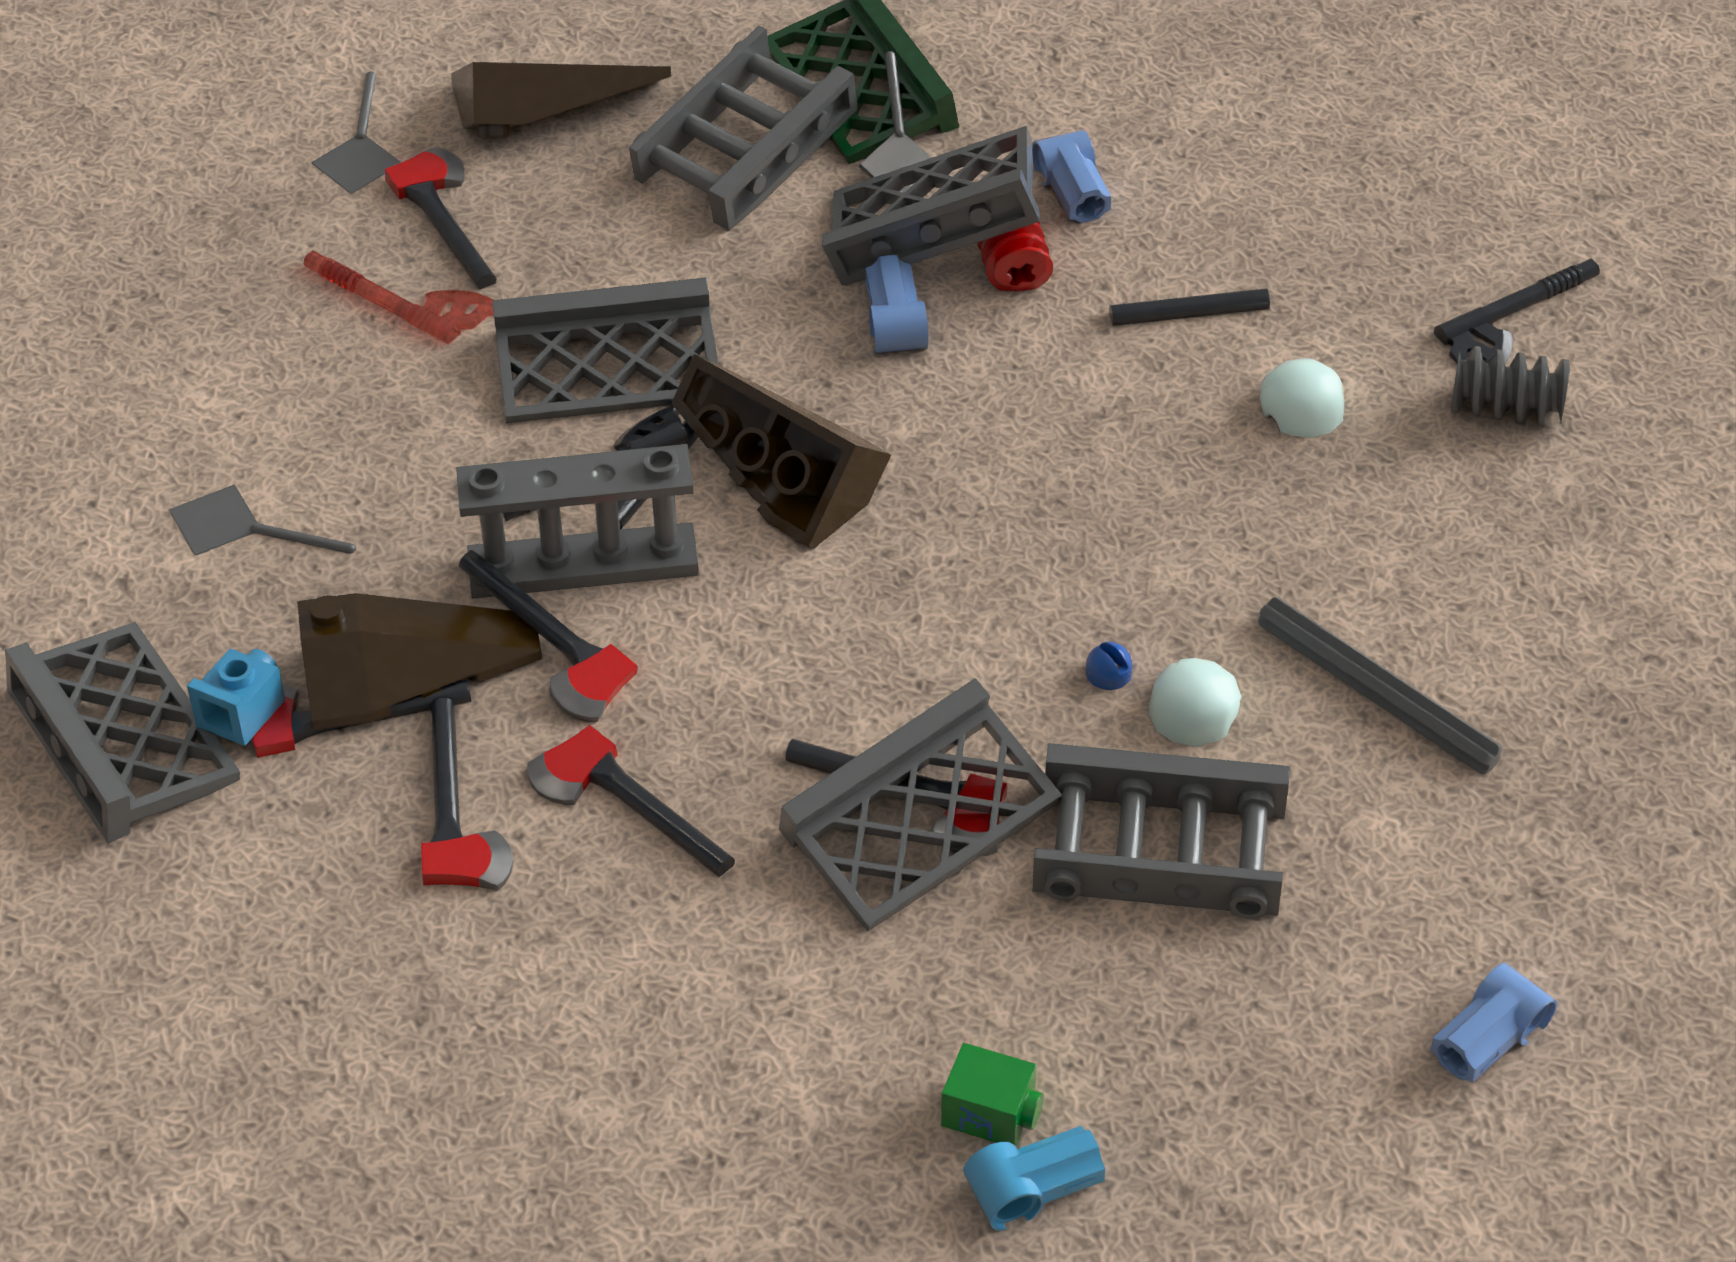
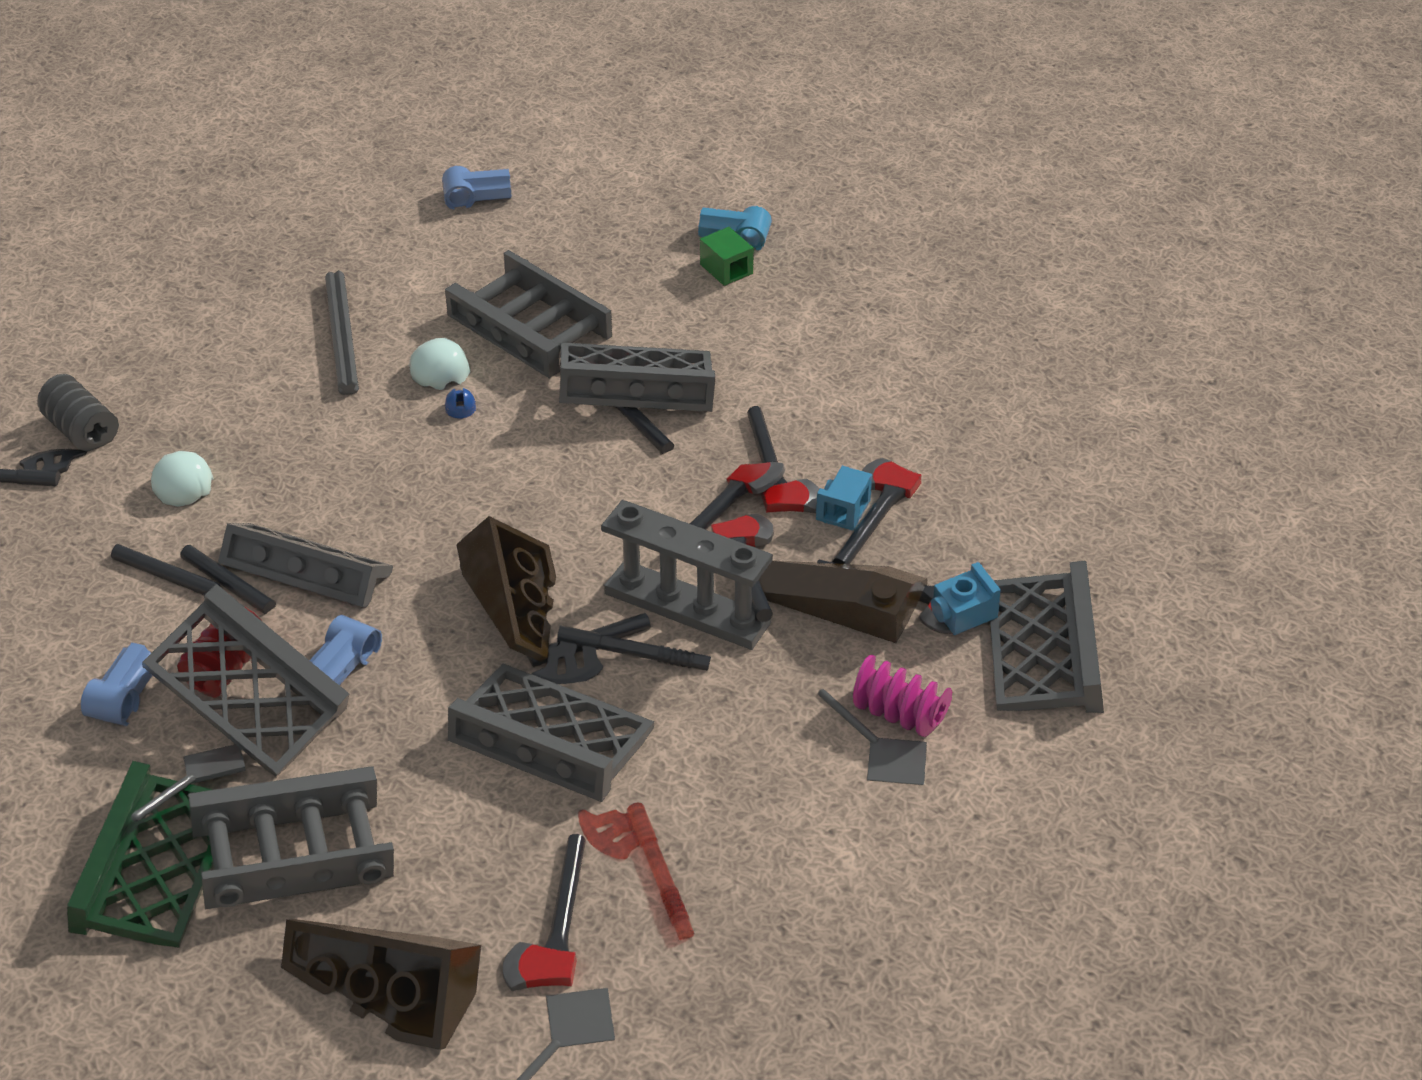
camera: 145 degrees left, 5 degrees down
(242, 553) = (900, 699): none -> dark pink piece
(493, 773) = (844, 498): none -> dark azure brick
(641, 743) = (746, 478): none -> piece
(1050, 364) = (301, 563): none -> dark grey fence
(1115, 332) = (227, 579): none -> black bar

